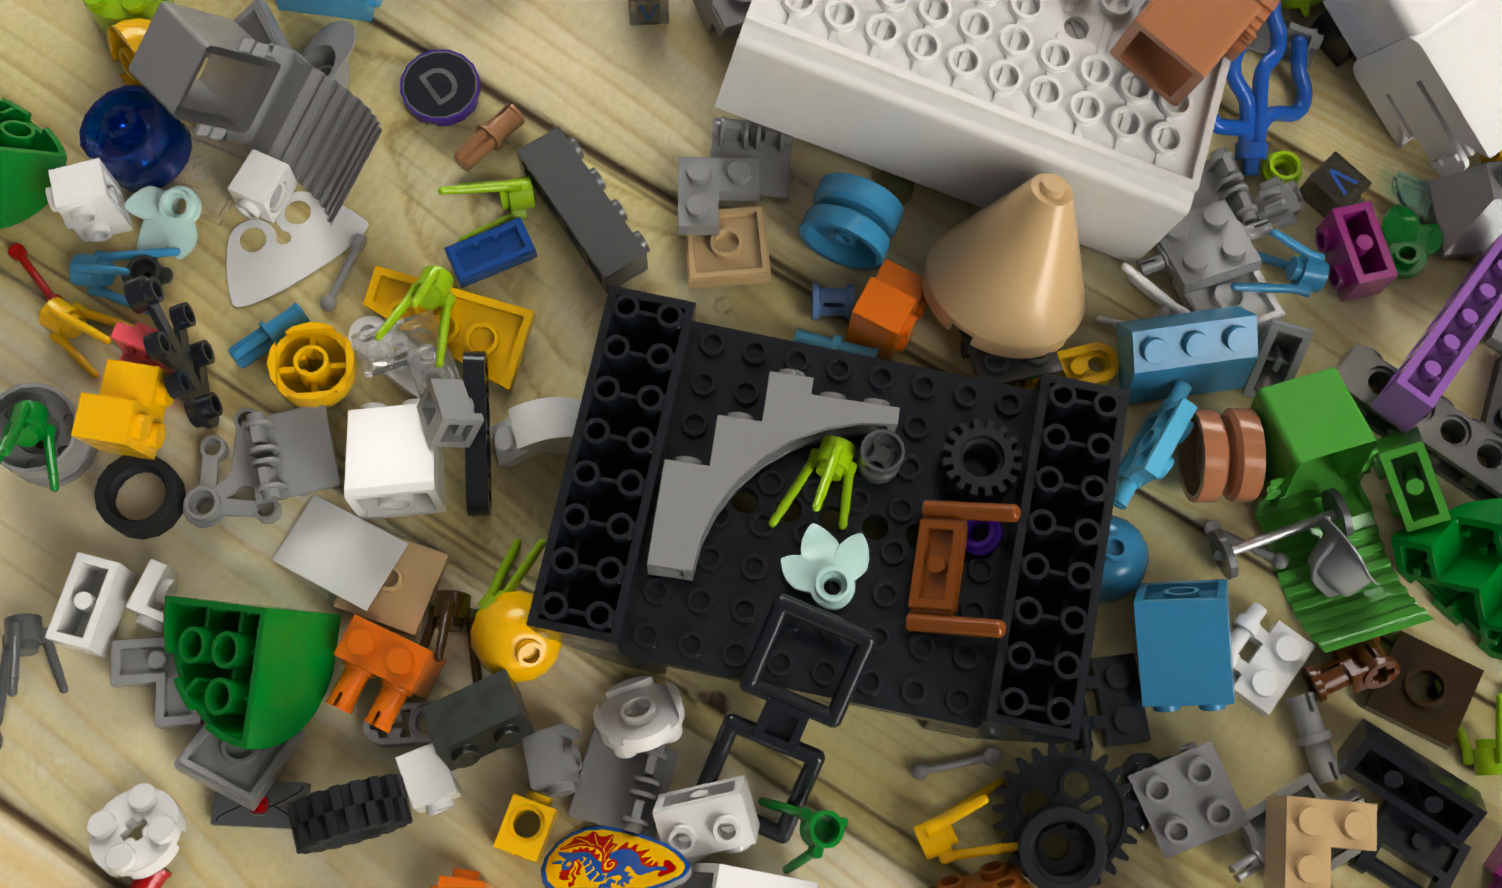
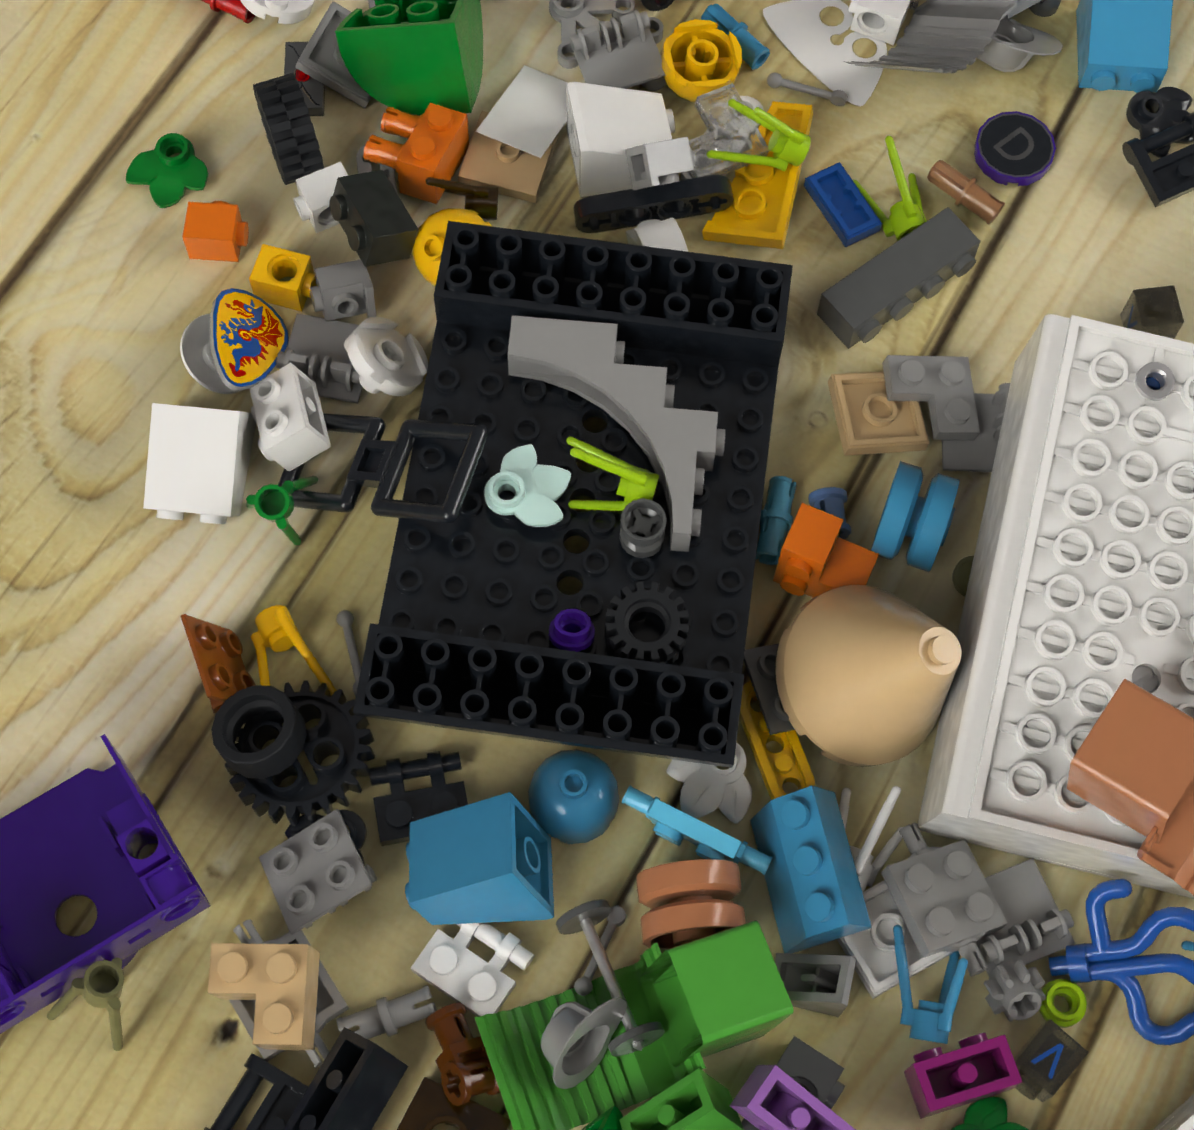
camera: 90 degrees right, 5 degrees down
(940, 567) = (530, 589): dark orange plate -> none

